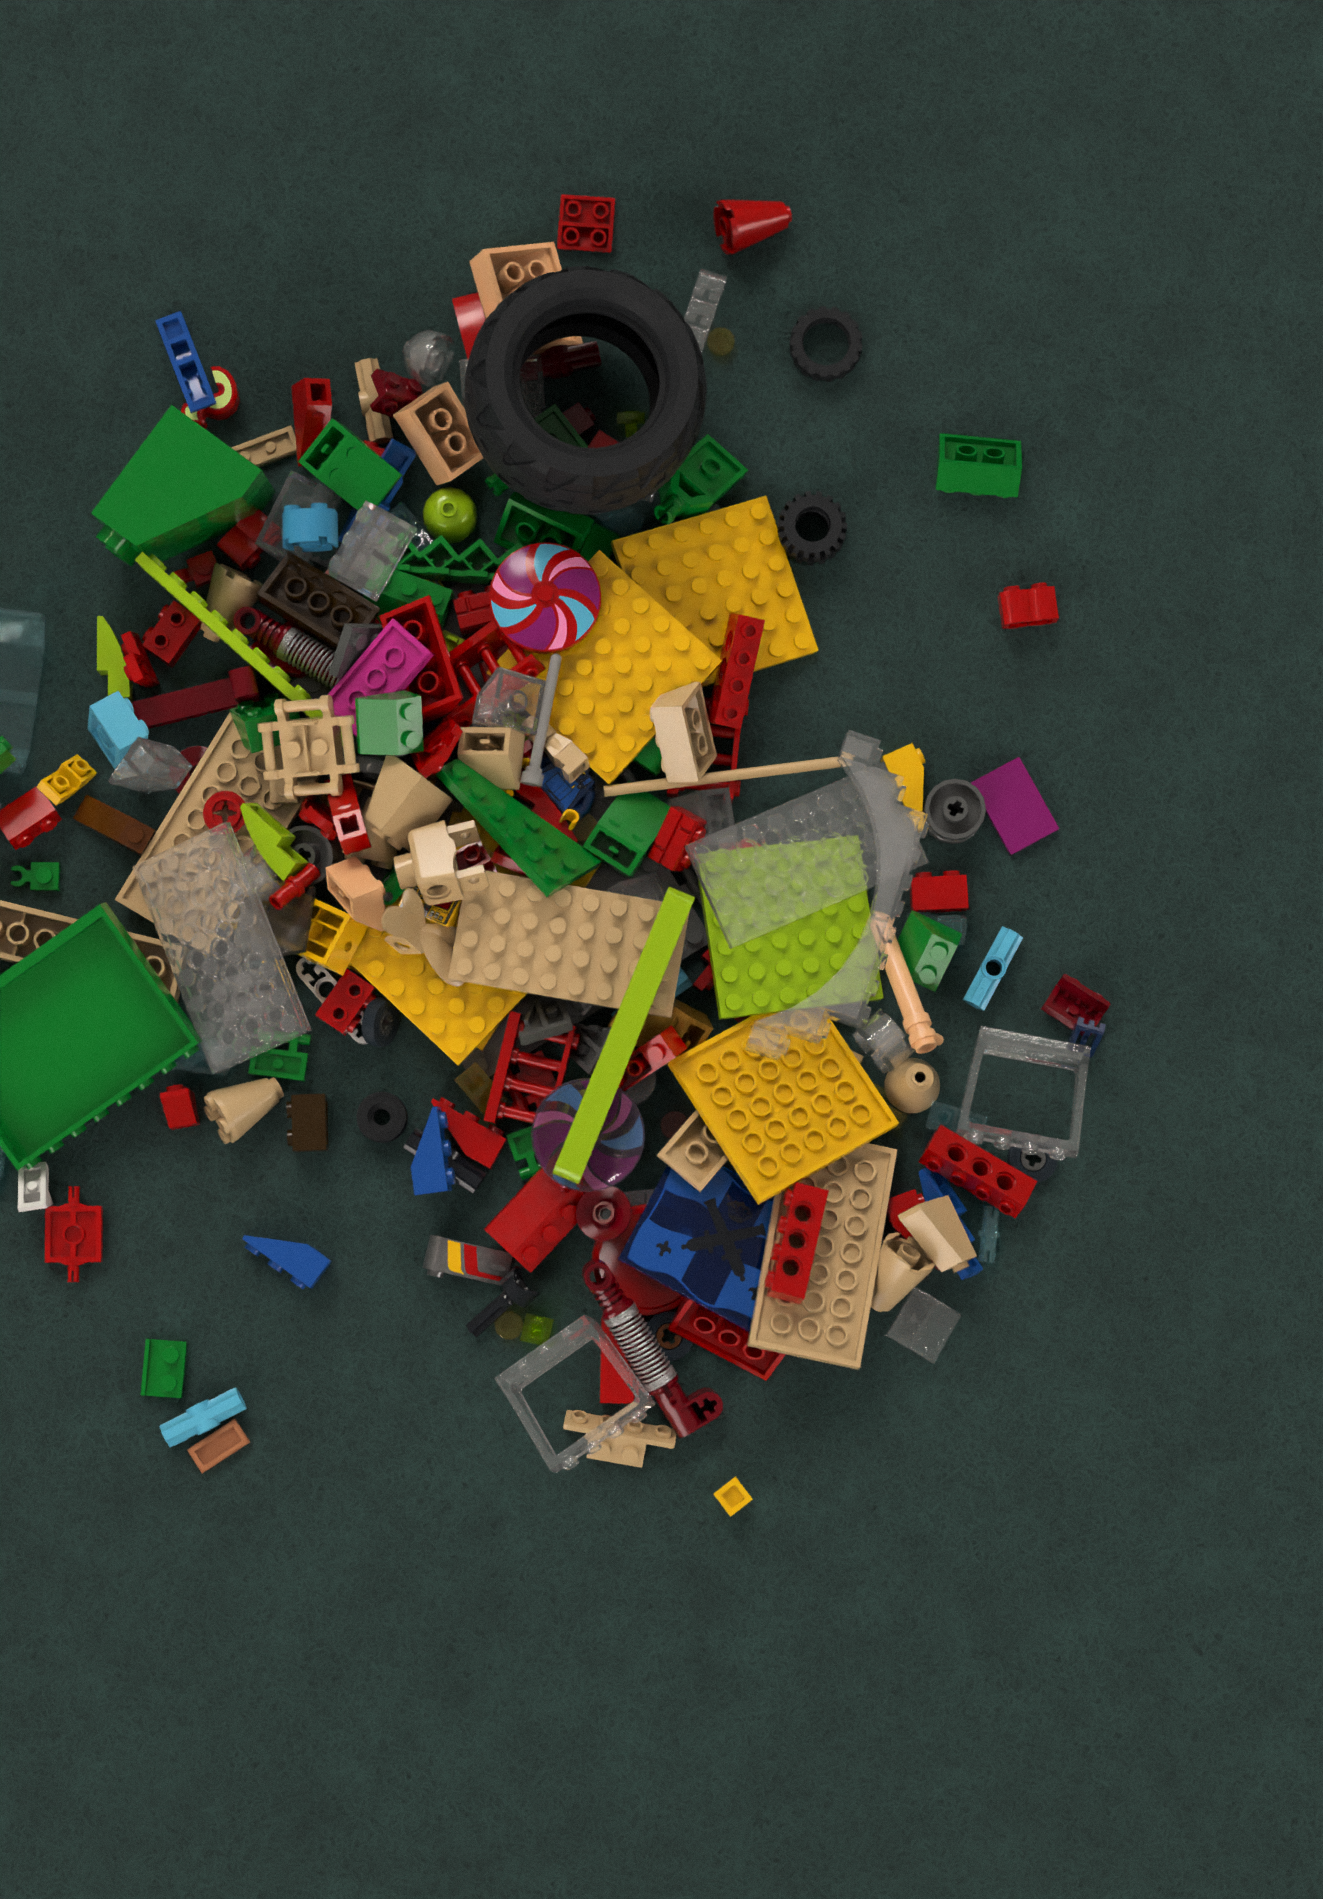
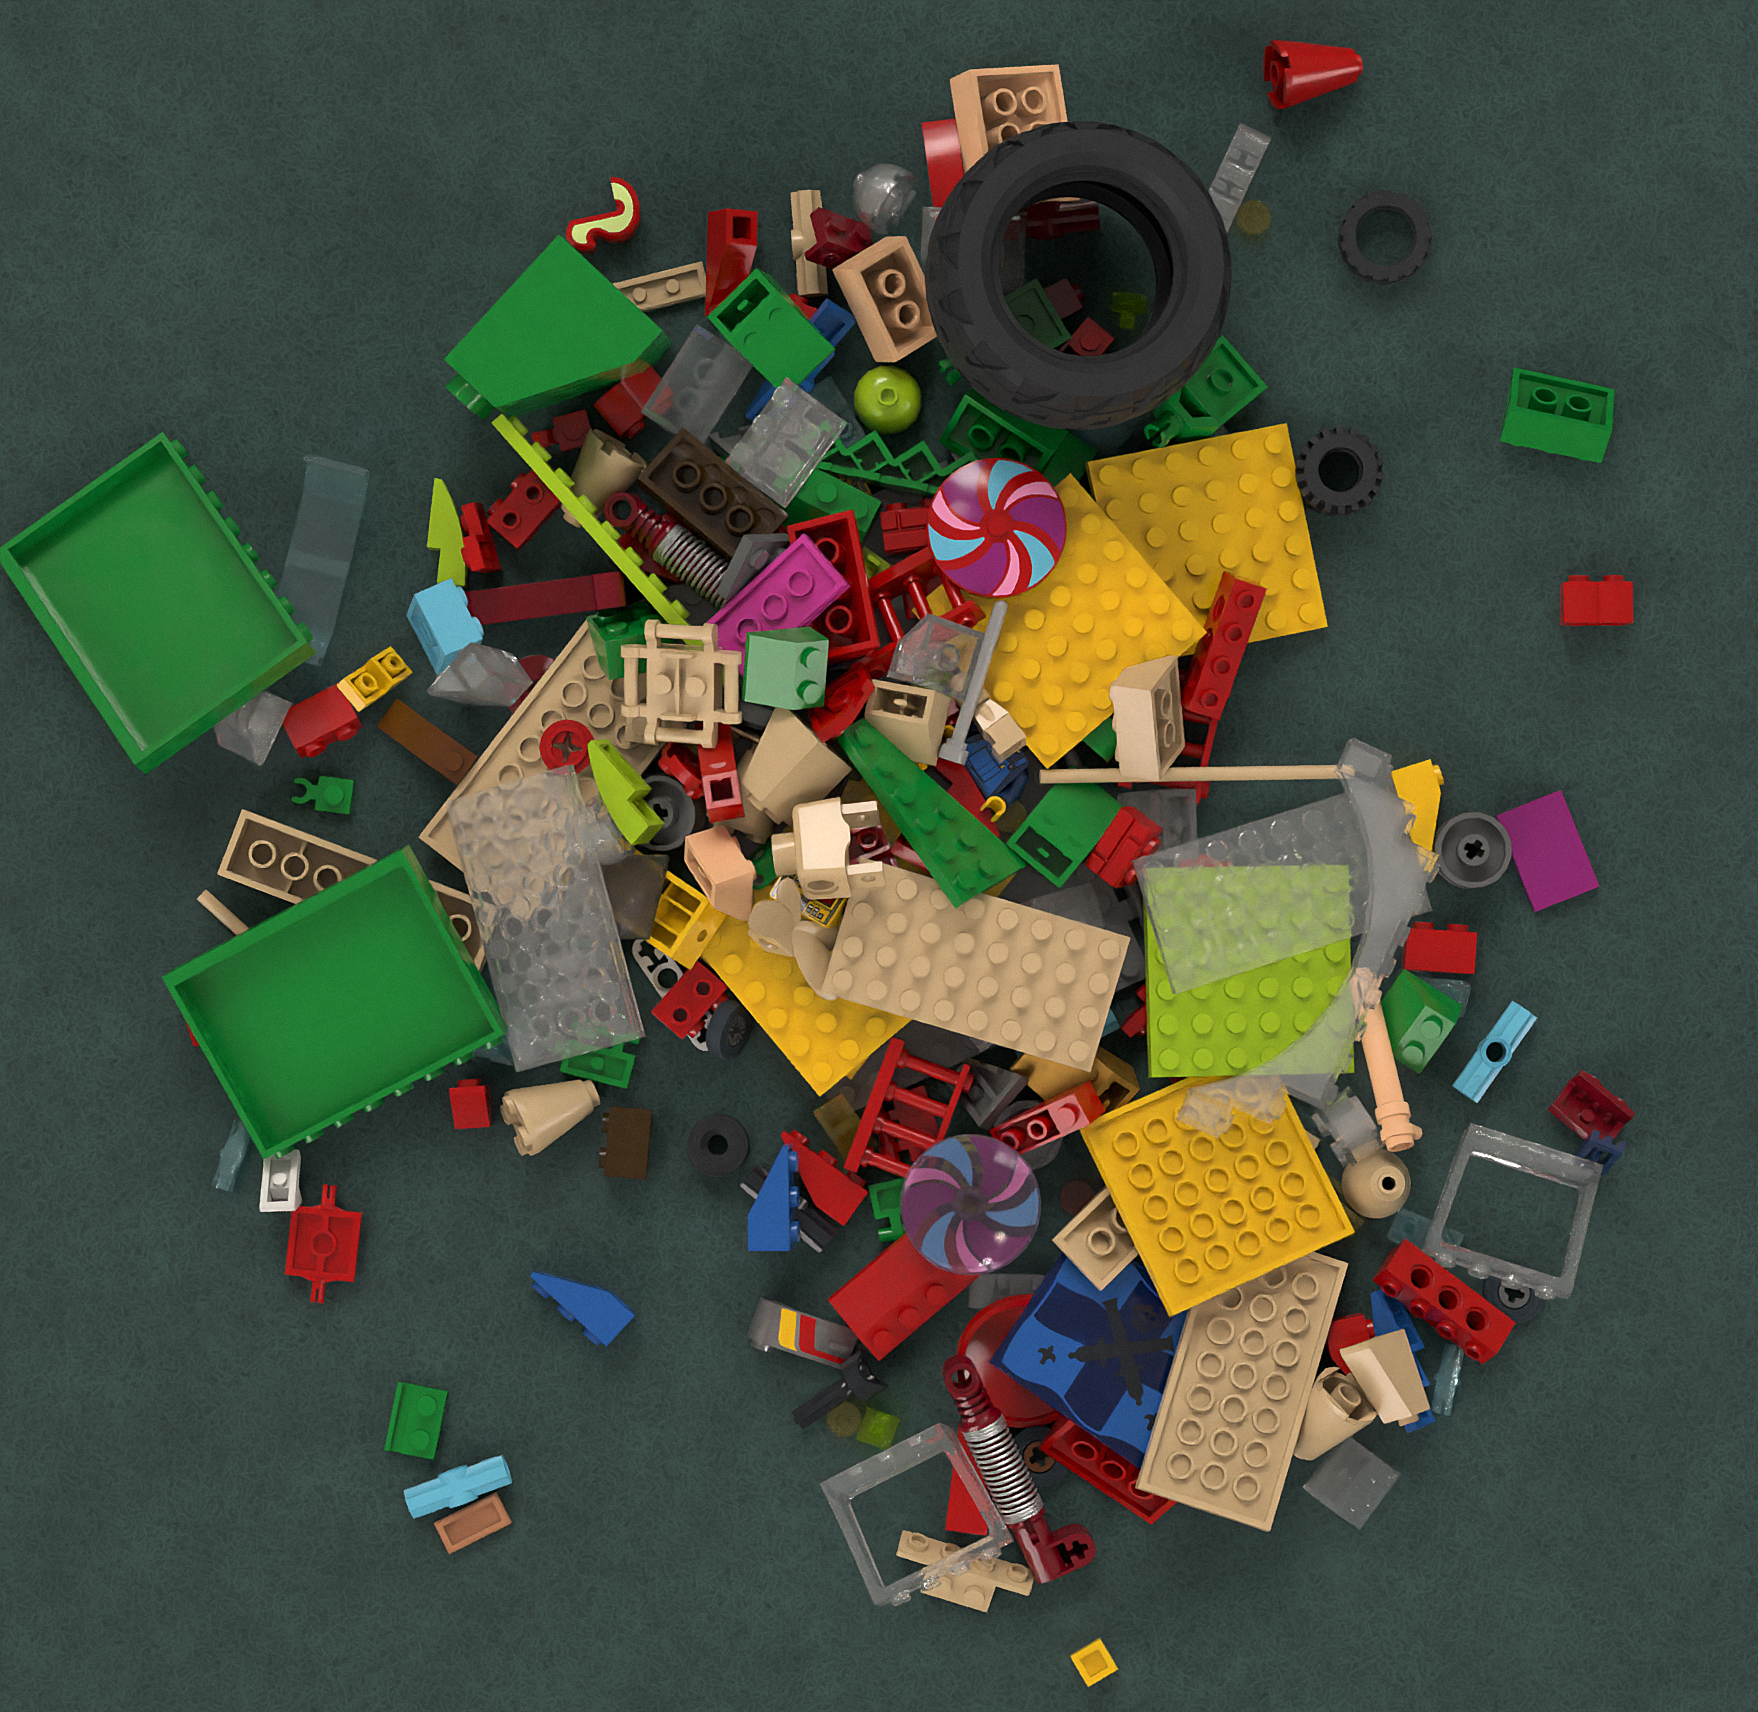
camera: 15 degrees right, 5 degrees up
(185, 362) = (579, 167): blue slope -> none
(294, 886) = (643, 853): red pin -> none
(310, 528) = (713, 405): dark azure brick -> none
(545, 1019) = (933, 1054): dark grey wing -> none
(586, 223) = (1101, 46): red slope -> none
(590, 1212) = (961, 1307): dark red dish -> none
(623, 1035) = (1029, 1089): lime beam -> none
(812, 1202) = (1238, 1323): red brick -> none

